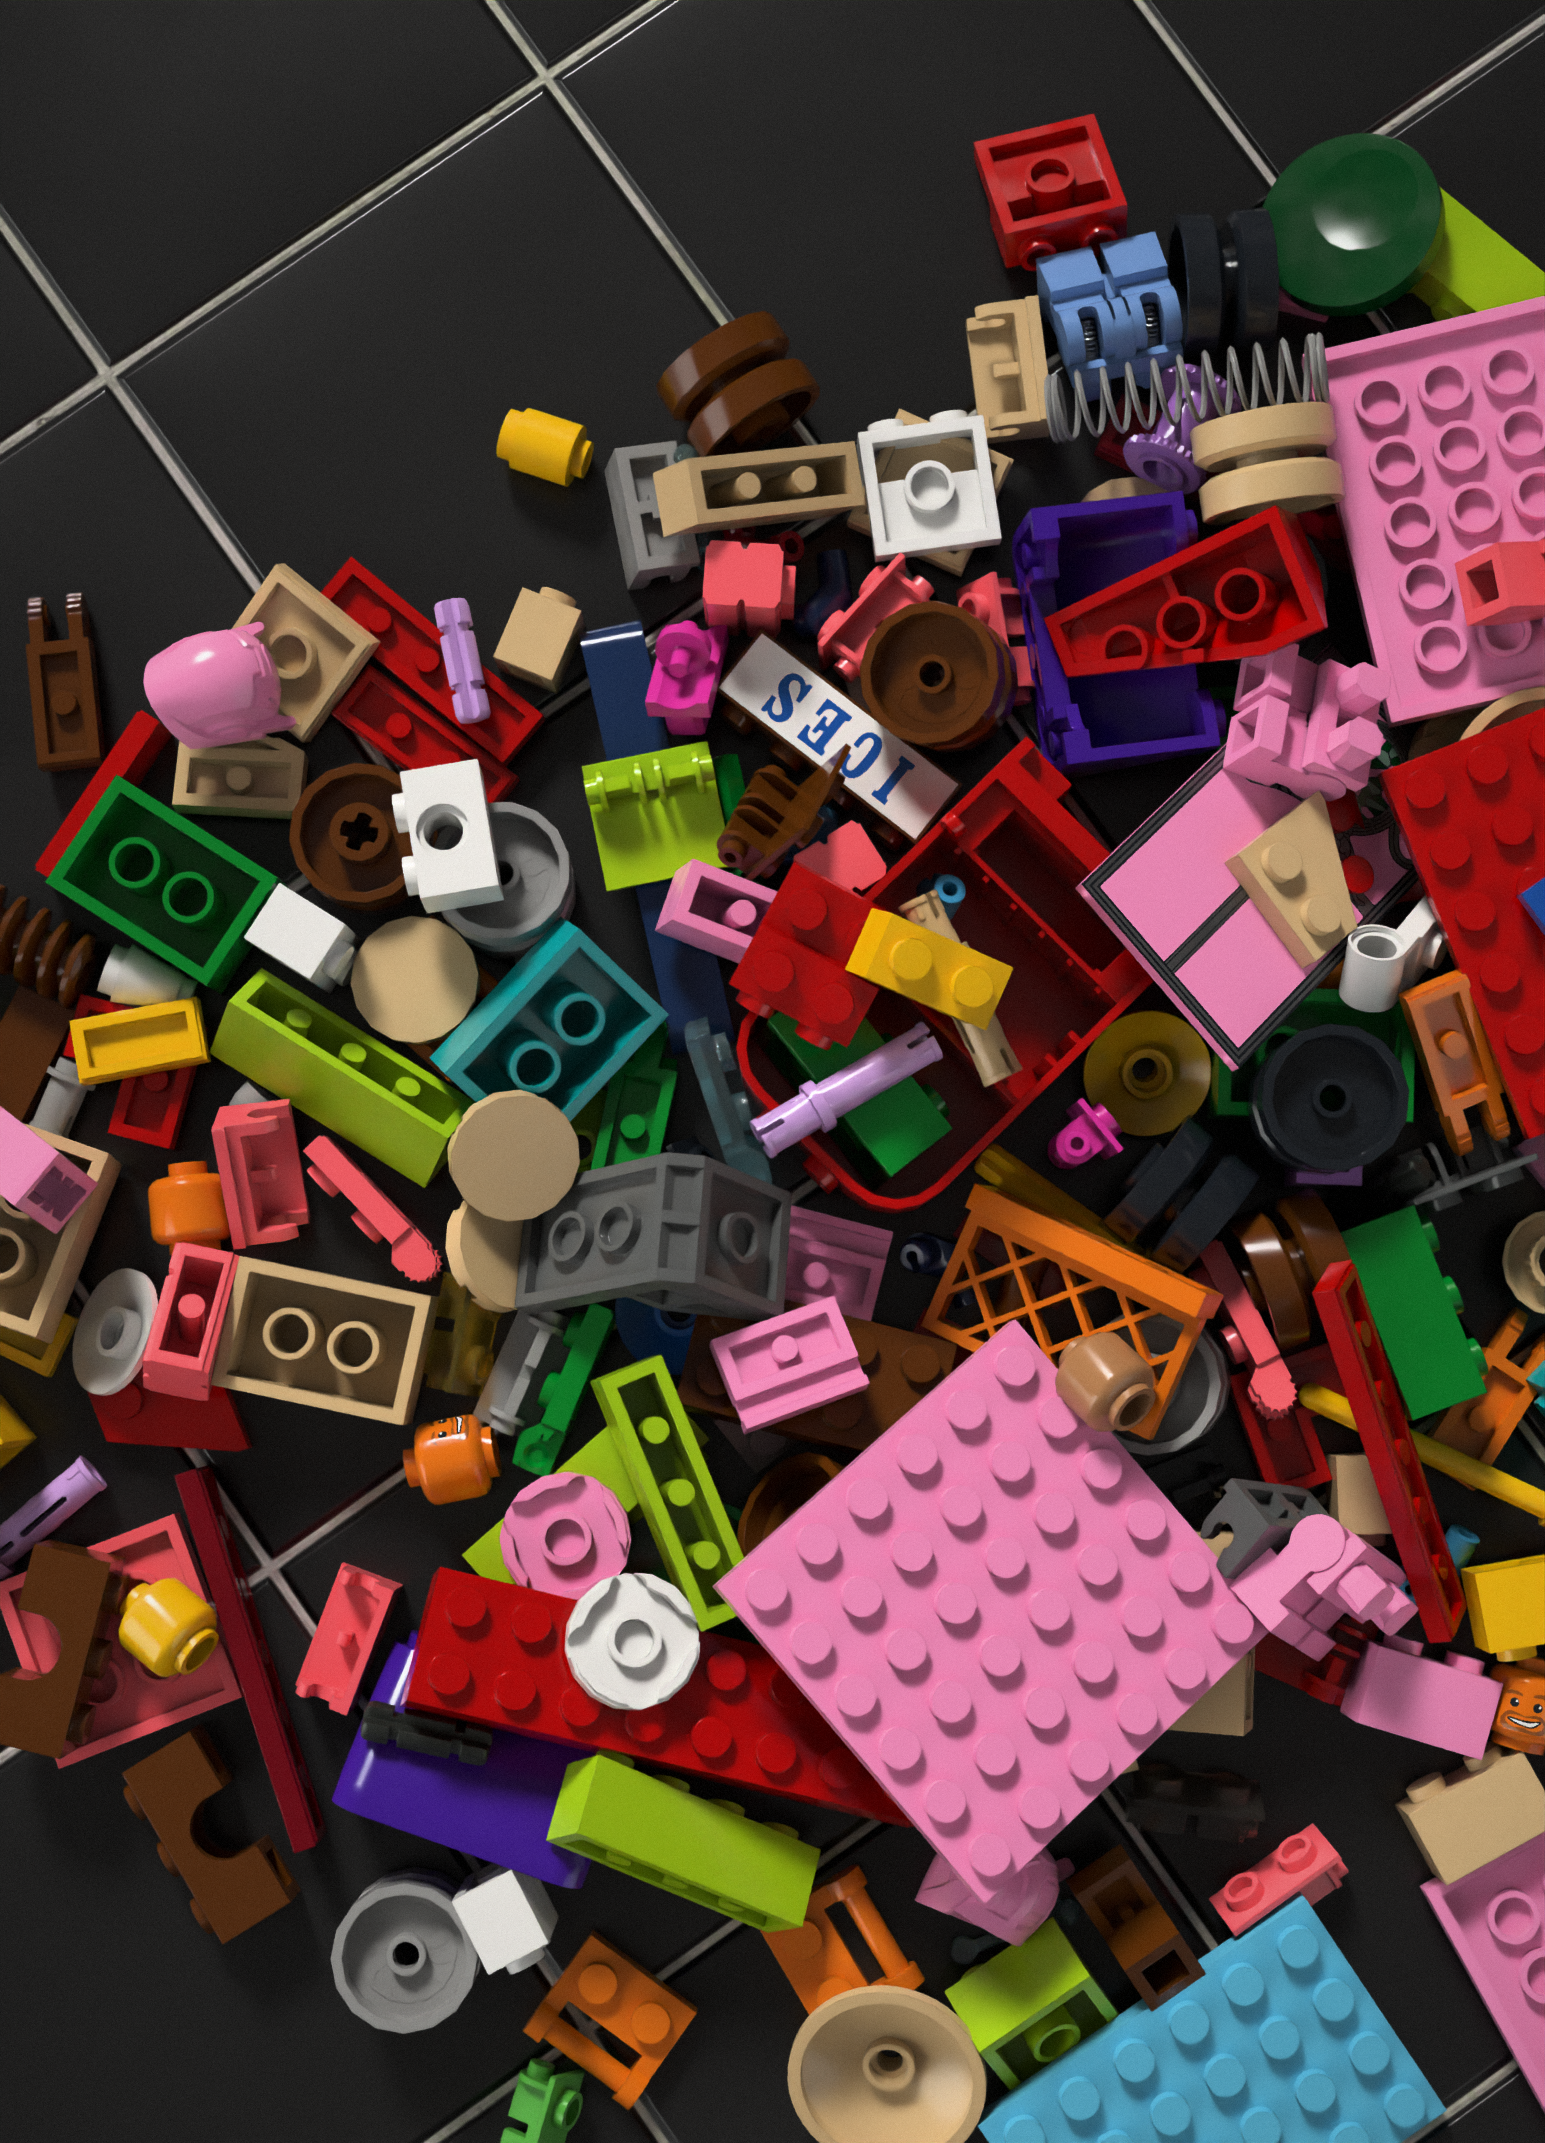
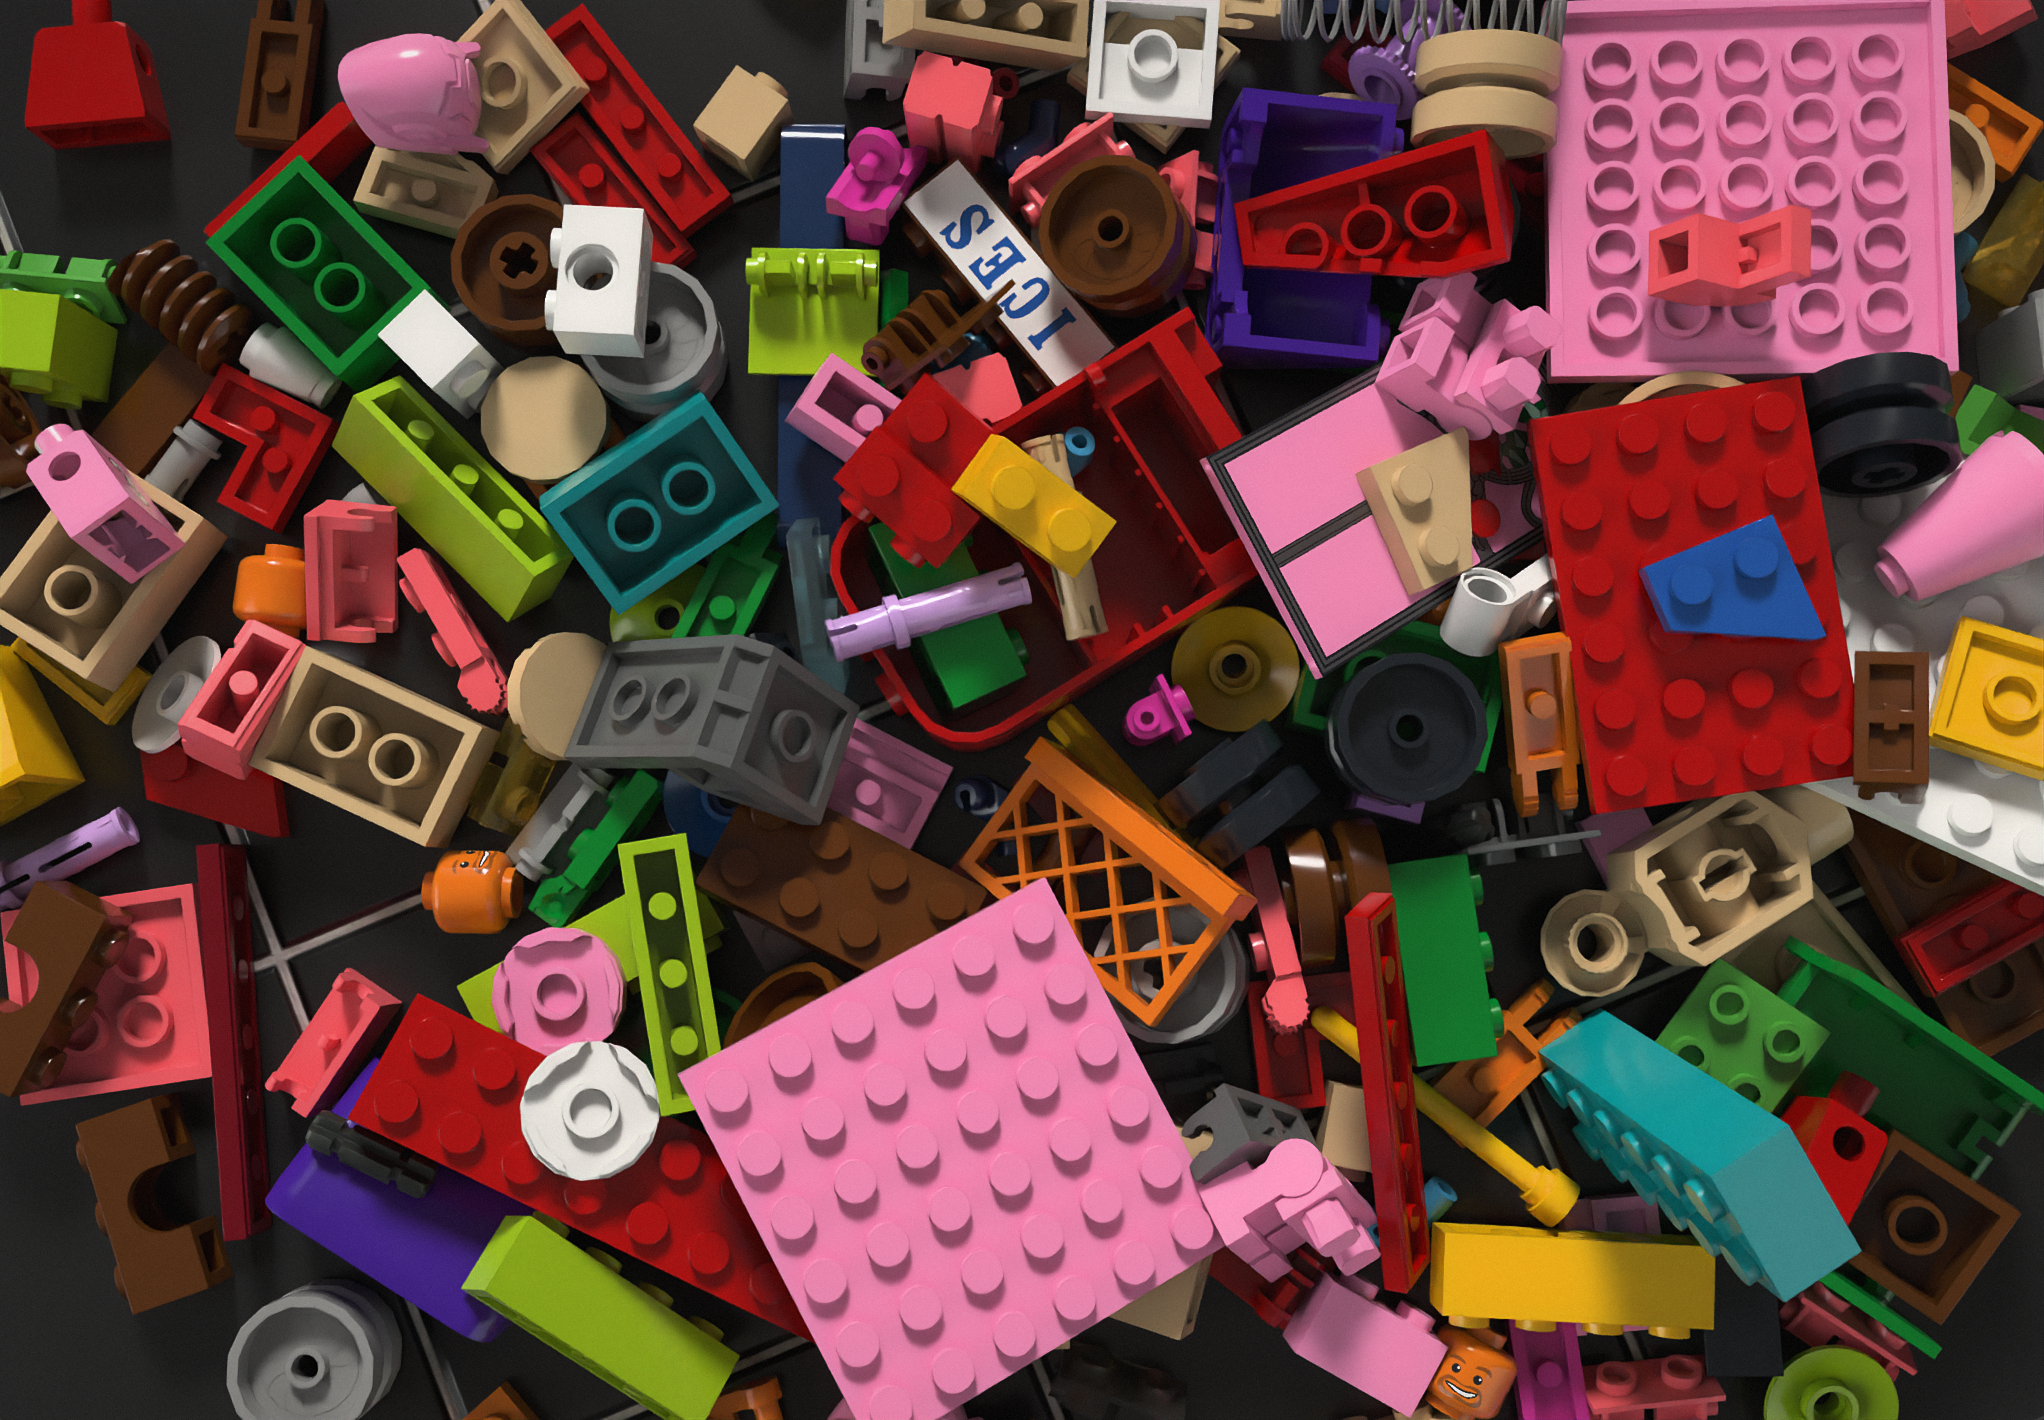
camera: 10 degrees right, 0 degrees up
(140, 1041) = (266, 419): yellow tile -> none
(168, 1627) = (152, 992): yellow head -> none
(462, 660) = (663, 123): lavender axle -> none
(506, 1917) = (410, 1356): white brick -> none
(513, 1155) = (593, 607): tan tile -> none
(789, 1364) = (813, 872): bright pink plate -> none
(1105, 1382) = (1119, 960): medium nougat head -> none

